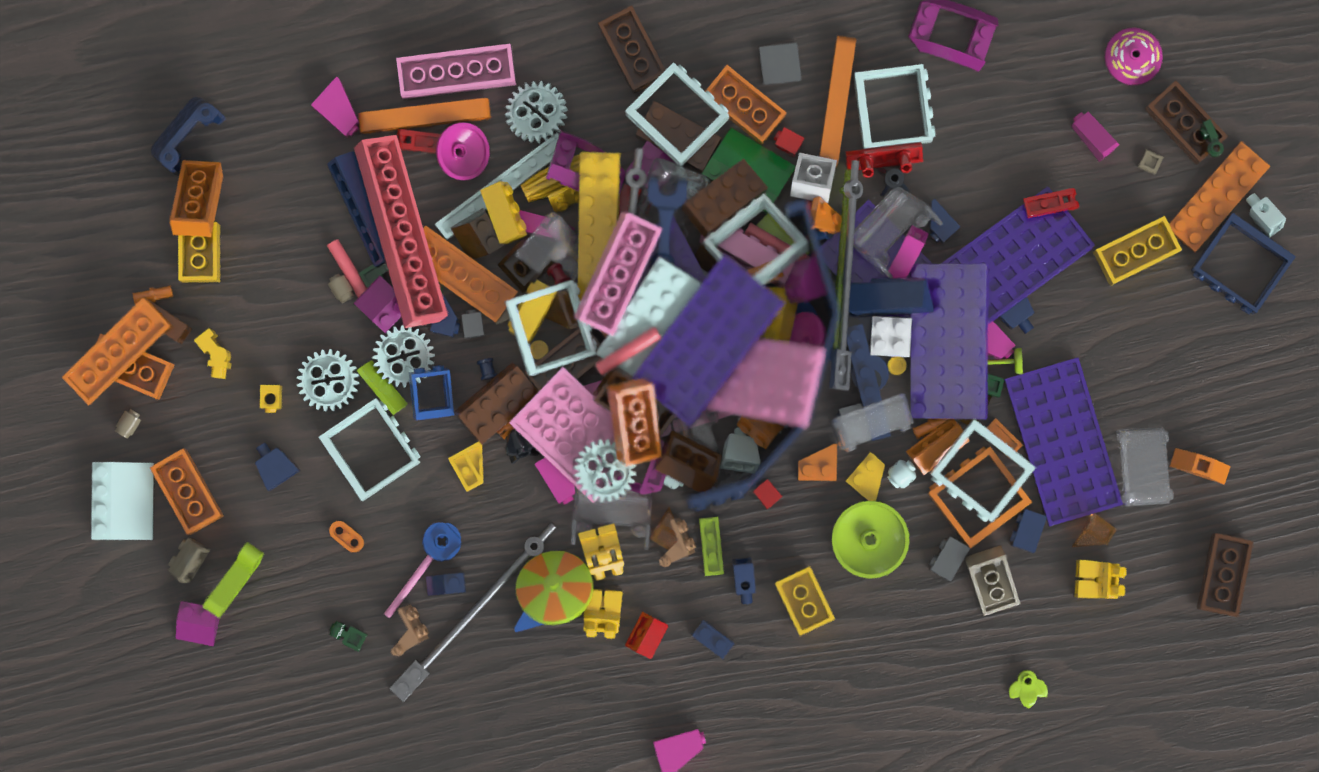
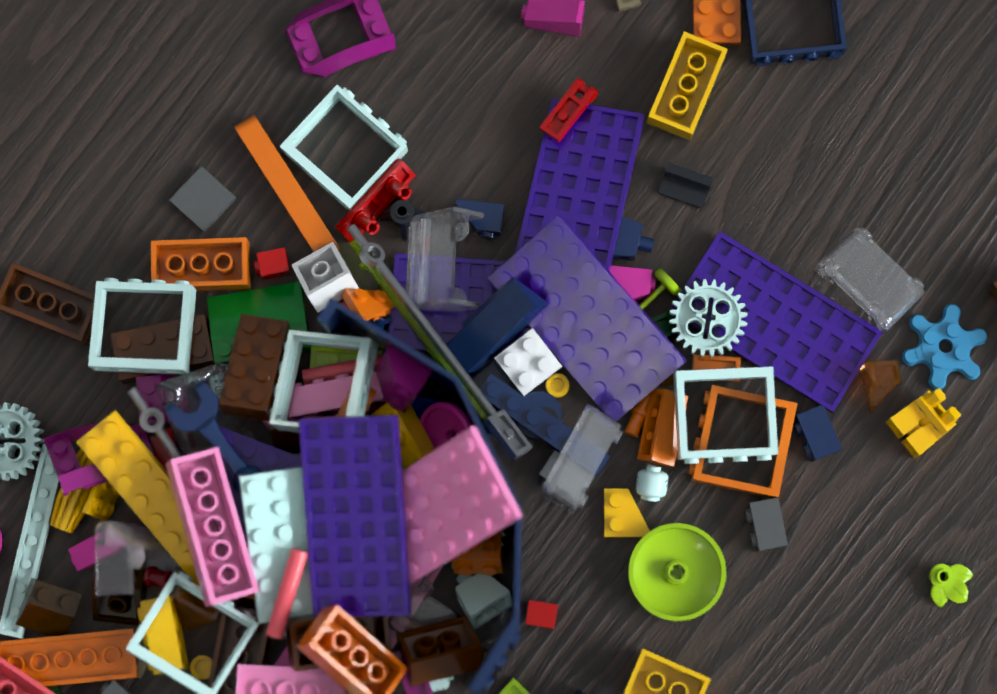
camera: 40 degrees left, 5 degrees down
(504, 212) = (54, 564): yellow brick -> none
(819, 466) = (567, 544): orange wing -> none
(908, 252) = (475, 269): dark pink slope -> none
(992, 580) = (825, 509): dark tan slope -> none
(1012, 390) = (687, 314): none -> light aqua gear
(1082, 311) = (685, 185): none -> black panel
(1140, 551) = (928, 349): none -> dark azure plate
(1200, 465) = (920, 234): orange slope -> none

